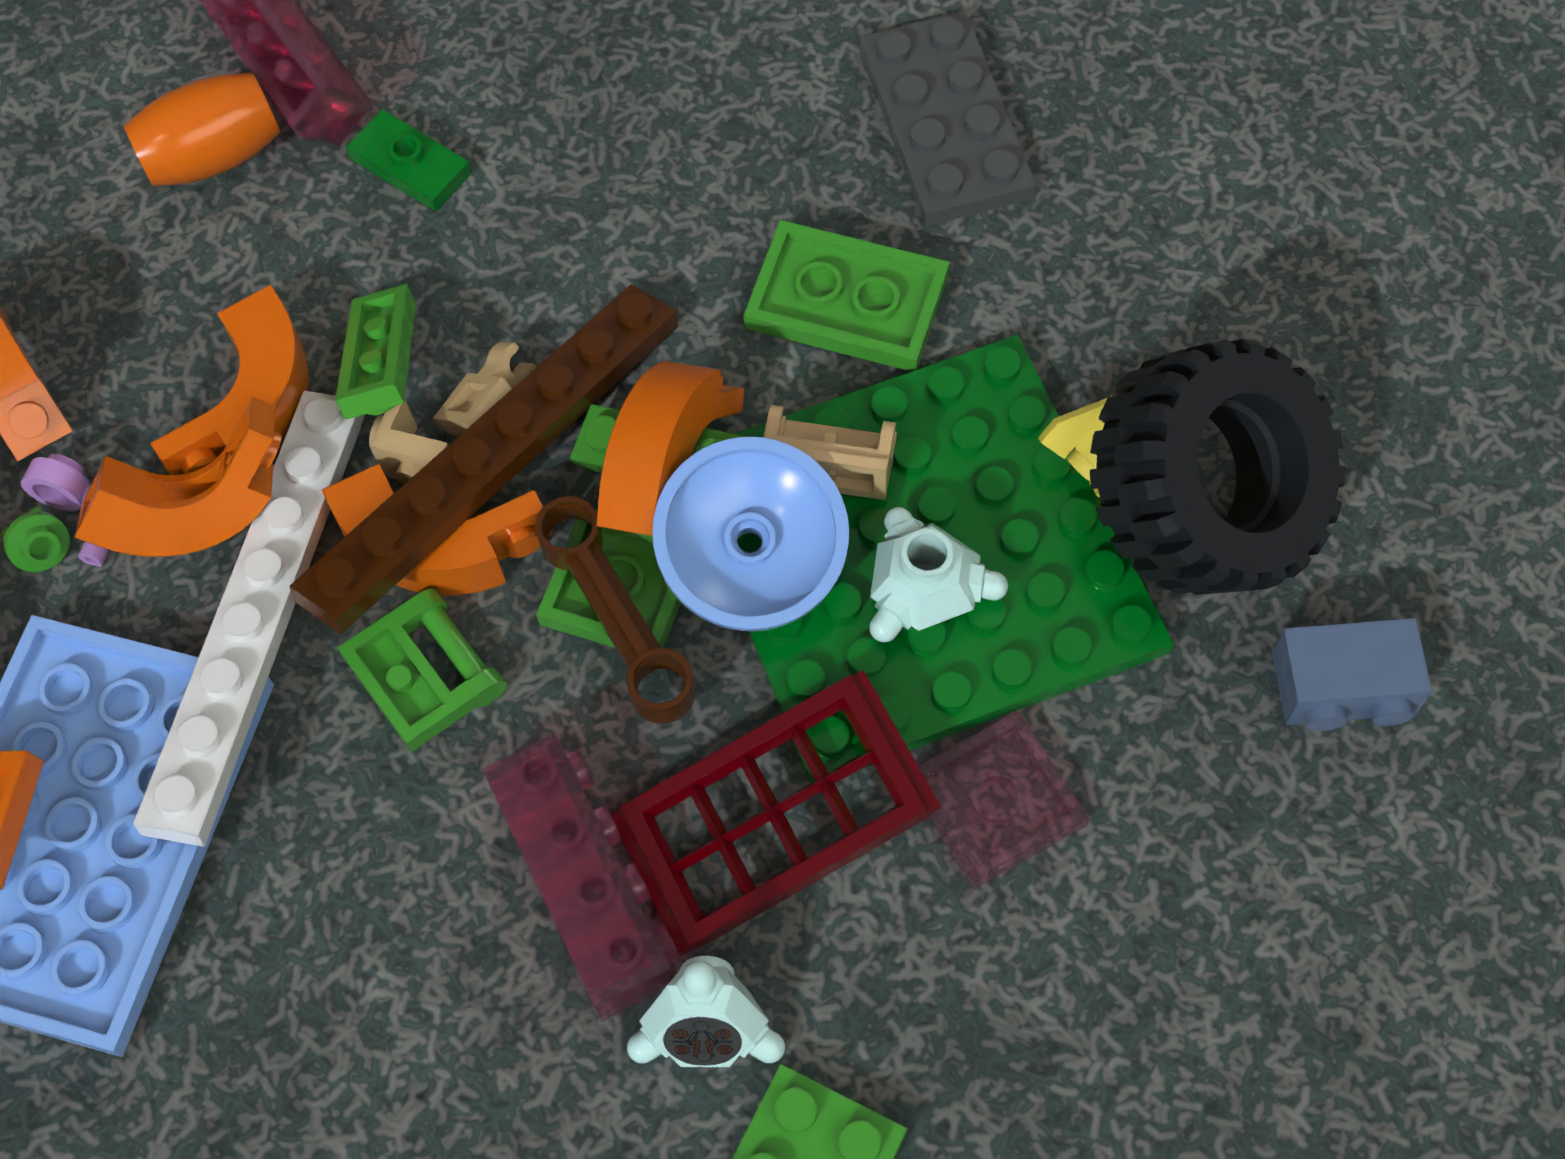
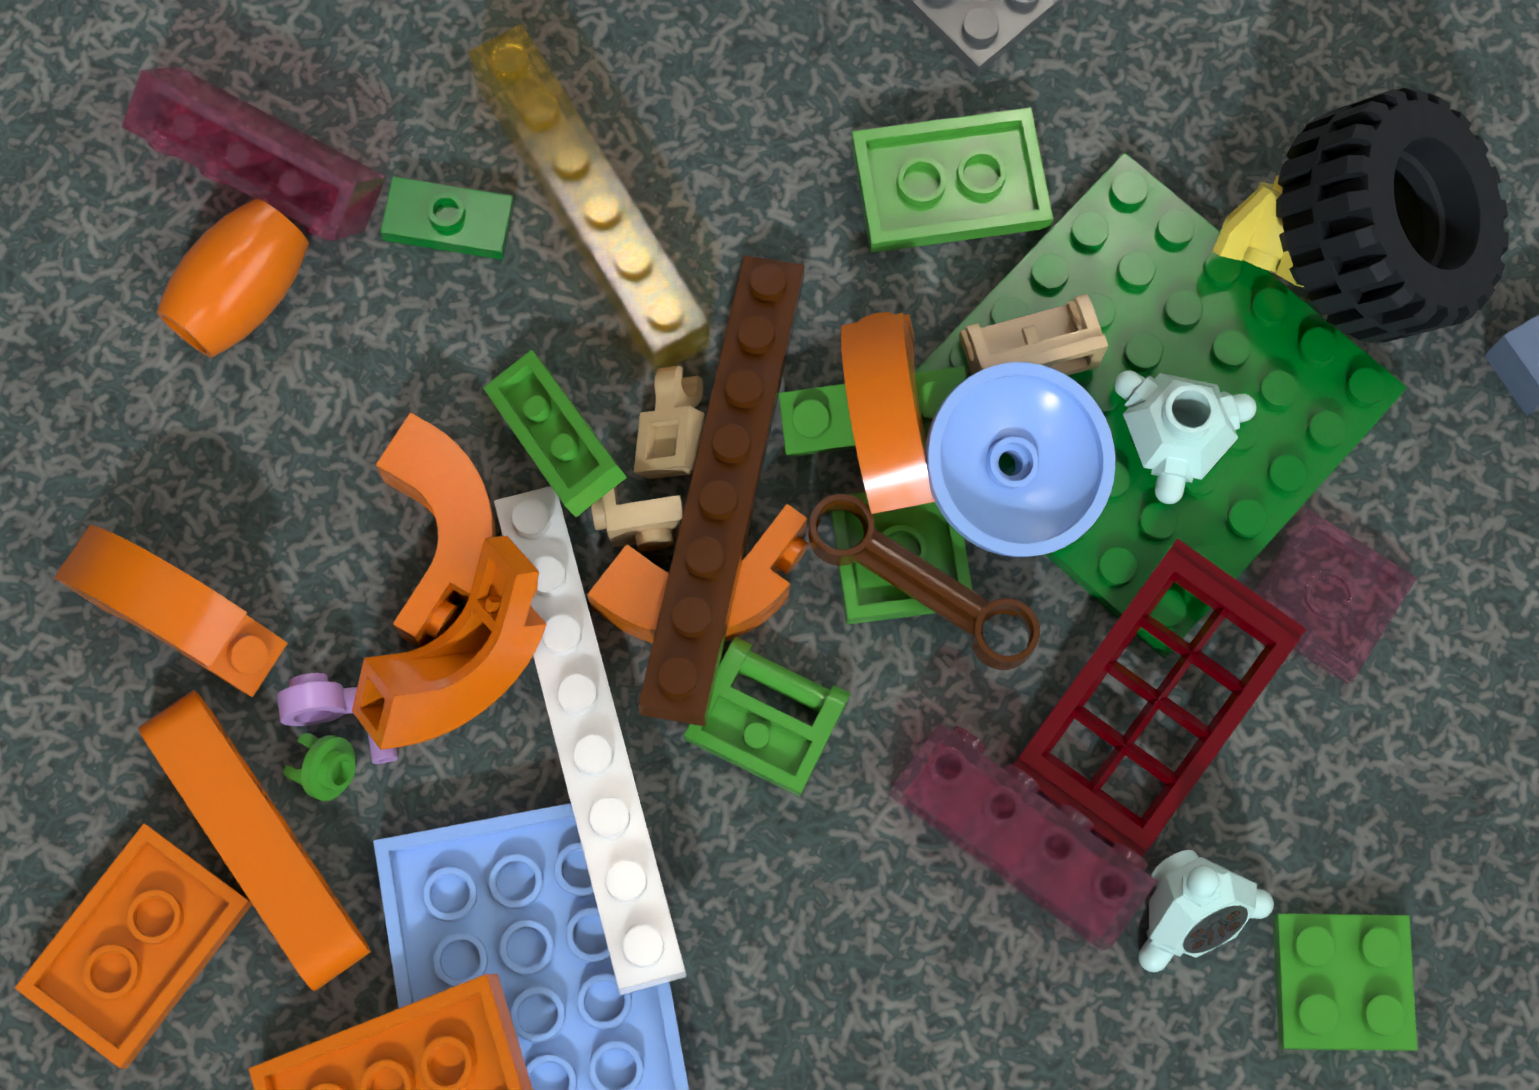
camera: 35 degrees left, 10 degrees up
(524, 189) = (589, 199): none -> clear yellow brick

